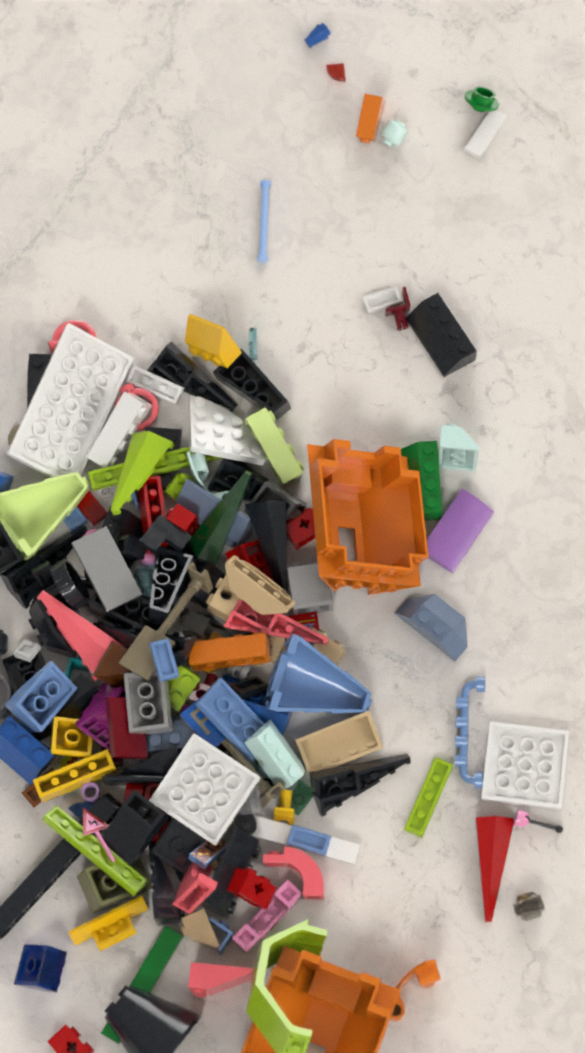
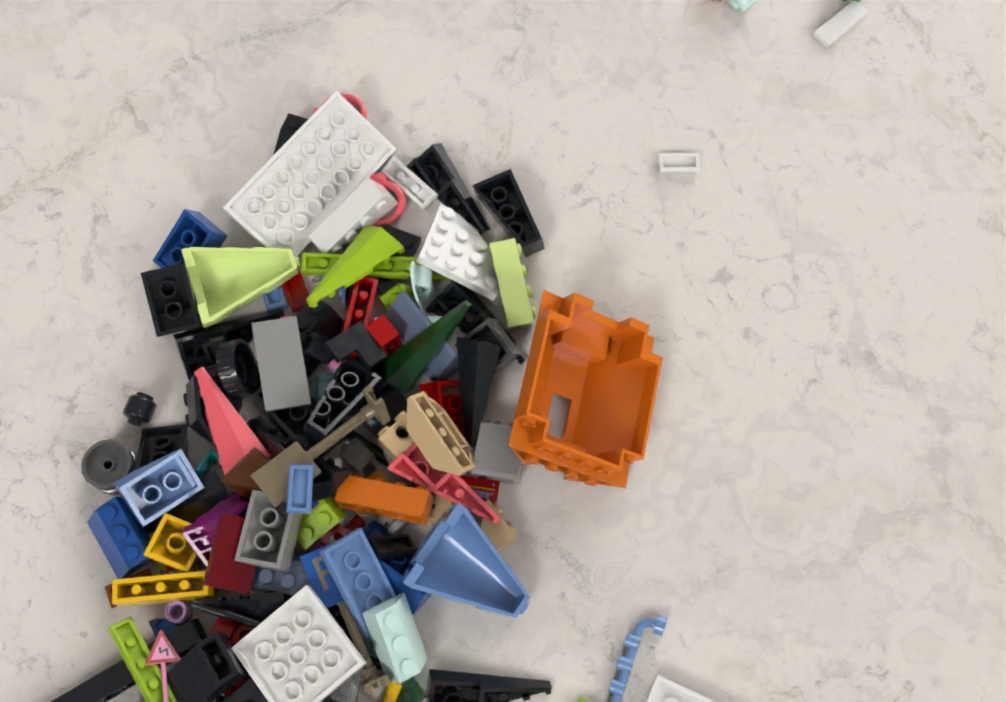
camera: 15 degrees right, 0 degrees up
(27, 650) = (171, 427): white tile -> none
(210, 341) = (480, 153): yellow slope -> none
(253, 343) = (525, 168): clear light blue tile -> none
(262, 257) = (566, 83): light blue bar -> none
(300, 535) = (504, 382): red brick -> none
(339, 743) = (475, 644): tan slope -> none
(399, 312) = (693, 179): dark red bracket -> none
(424, 458) = (672, 344): green slope -> none
(436, 623) = (630, 536): sand blue wedge -> none
(441, 335) = (732, 217): black slope -> none
(457, 449) = (713, 345): light aqua slope -> none
(457, 530) = (686, 436): medium lavender slope -> none

